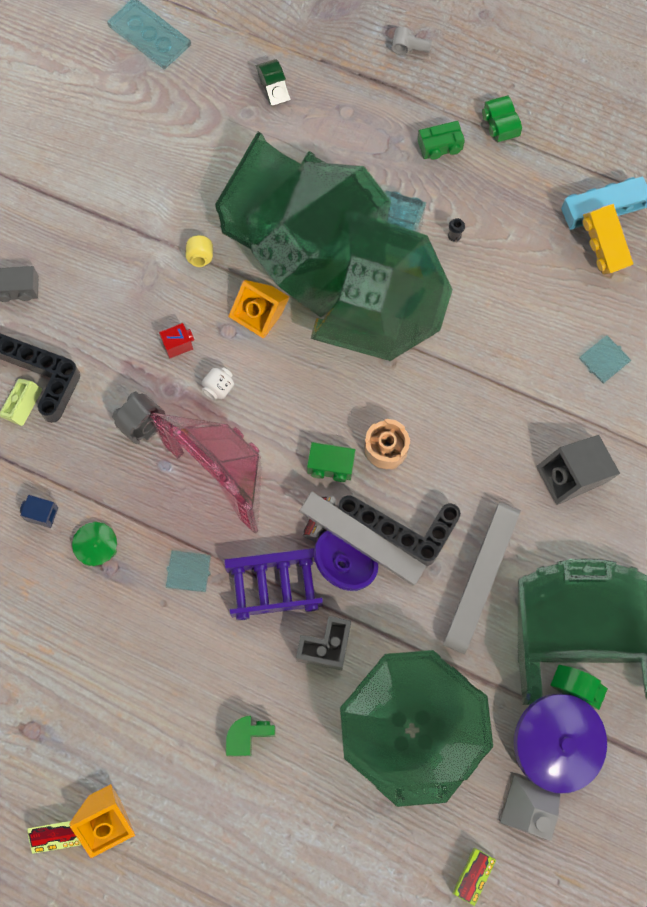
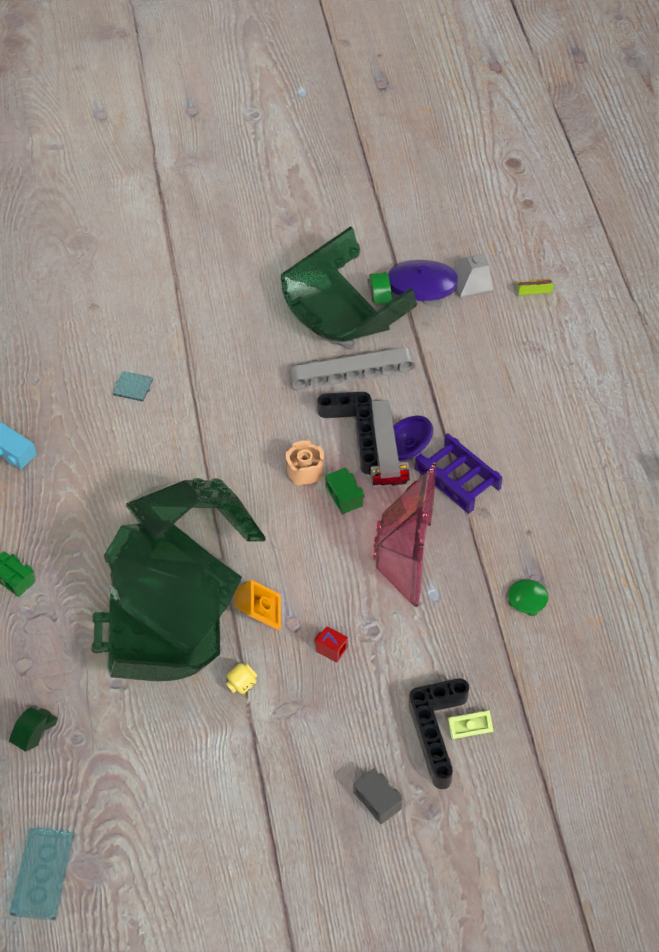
camera: 125 degrees left, 20 degrees down
(38, 511) = (538, 643): dark blue brick -> none
(135, 417) = (415, 620): dark grey brick -> none
(188, 571) = (494, 531): clear light blue piece -> none
(217, 383) = (344, 592): white head -> none
(241, 733) = (566, 432): green brick -> none
(328, 651) = (472, 414): dark grey brick -> none
(406, 211) = (100, 542): clear light blue brick -> none
(438, 701) = (472, 324): clear green windscreen -> none
(456, 228) = (91, 516): black pin -> none
(577, 469) = (234, 355): dark grey slope -> none
(607, 239) = (36, 417): yellow brick -> none

